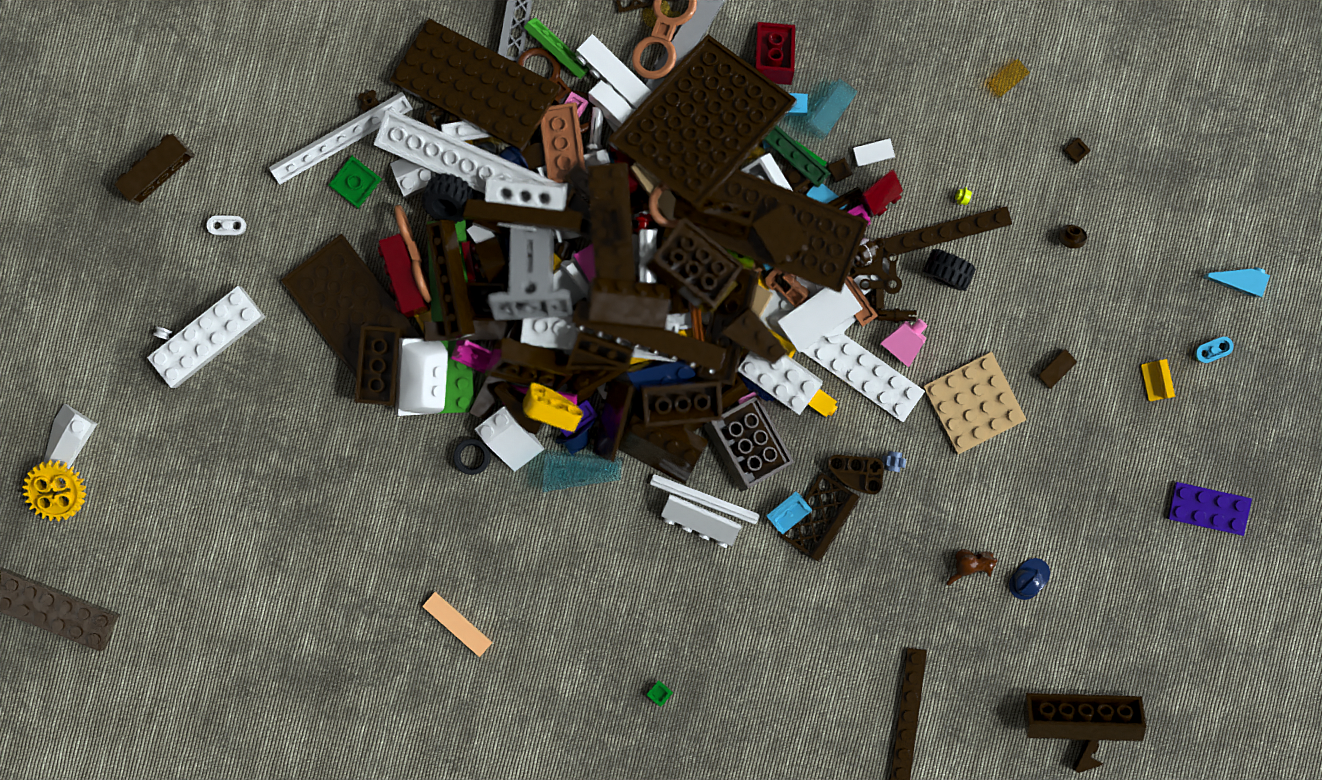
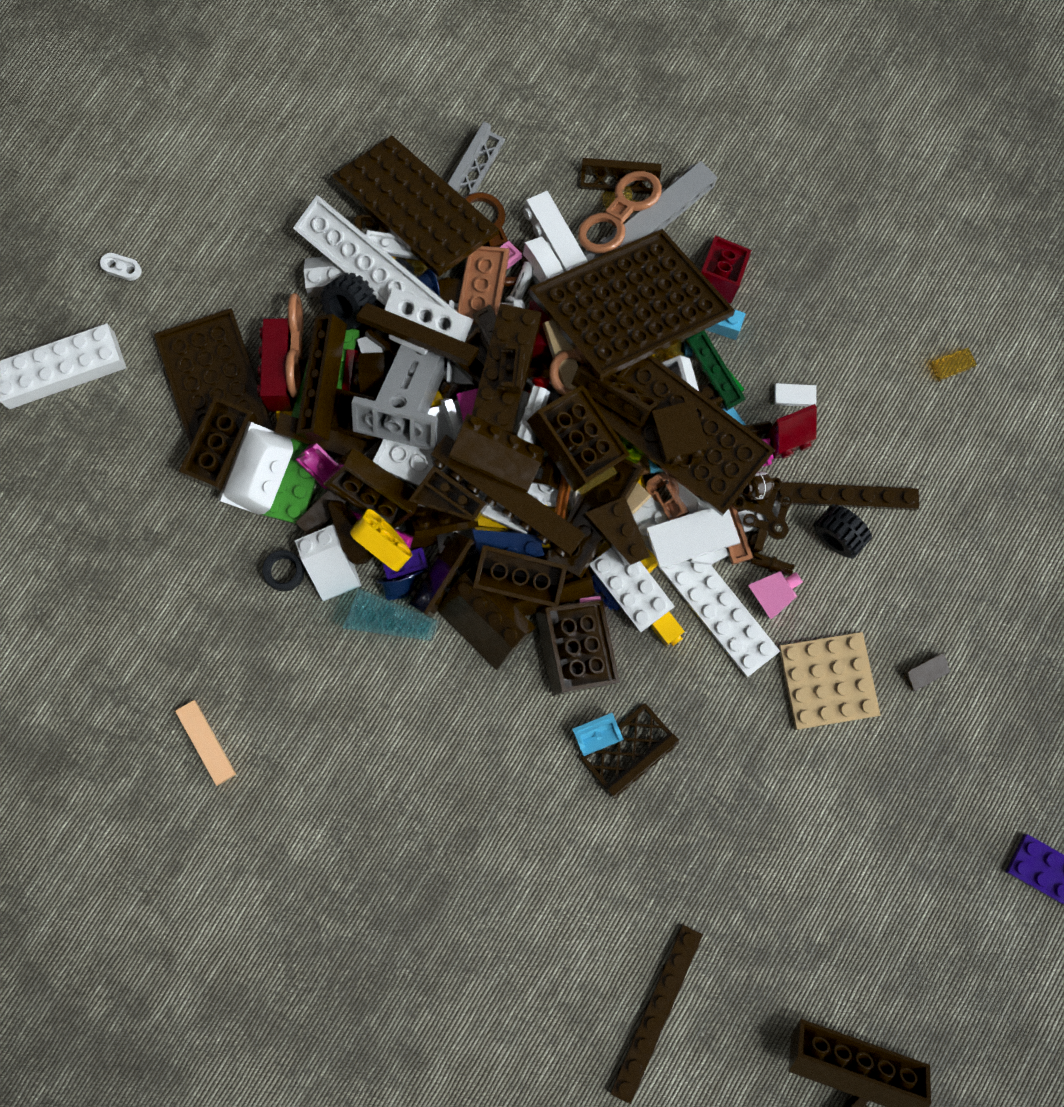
camera: 10 degrees right, 10 degrees down
(154, 169) = (69, 189): dark brown brick -> none
(162, 333) = (15, 348): white bush -> none
(337, 139) = (254, 220): white plate -> none
(355, 182) = (264, 265): green tile -> none
(368, 105) = (305, 198): dark brown plate -> none
(553, 44) = (505, 194): bright green plate -> none
(659, 693) = (396, 888): green plate -> none
(700, 520) = (500, 711): white slope -> none
(704, 499) = (512, 692): white axle -> none
(830, 108) = (763, 338): clear light blue wedge -> none
(840, 170) = (755, 402): dark brown tile -> none
(858, 478) = (684, 721): dark brown beam -> none
(894, 461) = (726, 714): sand blue gear -> none
(963, 196) = (875, 465): neon yellow plate -> none
(968, 564) = (777, 852): reddish brown animal -> none
(1029, 579) = (837, 890): dark blue piece -> none
(1072, 236) = (979, 539): dark brown plate -> none
(1077, 150) = (1005, 456): dark brown tile -> none
(1157, 380) = (1033, 718): yellow panel -> none

